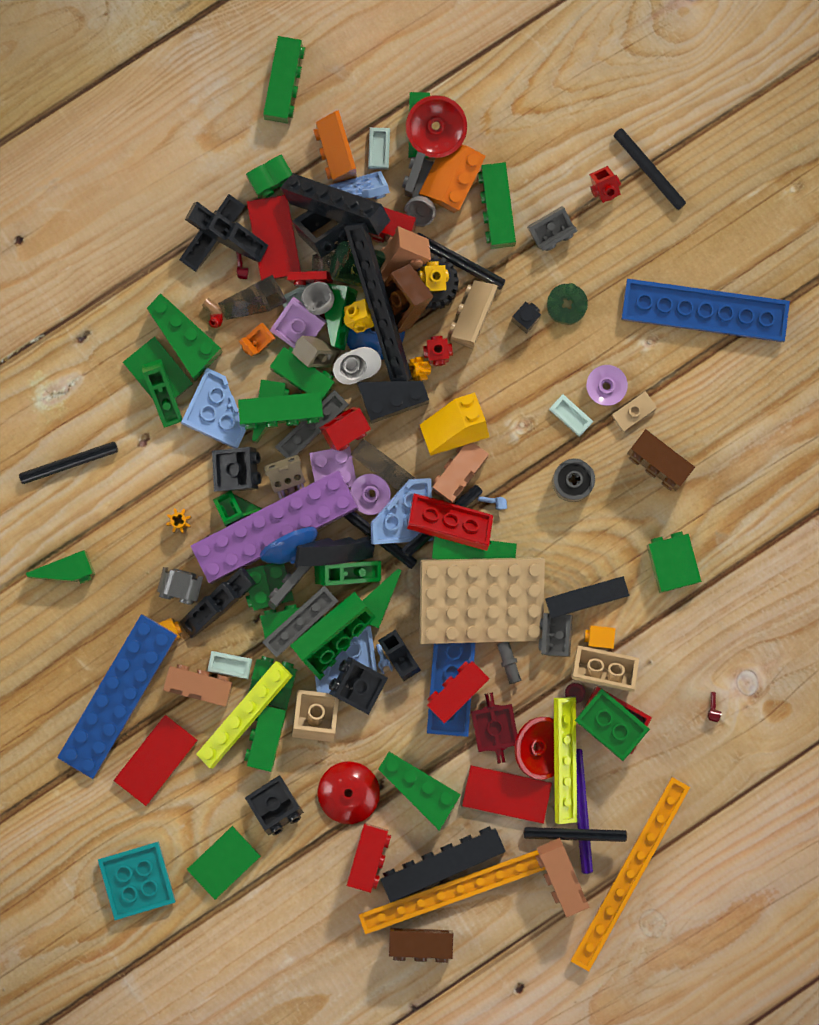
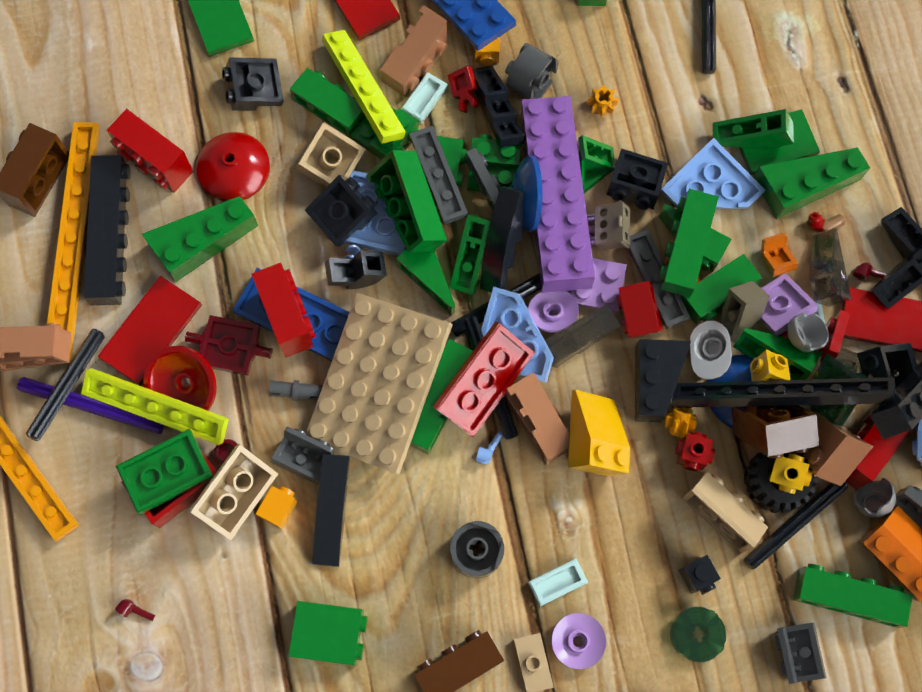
camera: 110 degrees right, 10 degrees down
(208, 636) = (462, 85): none -> red plate

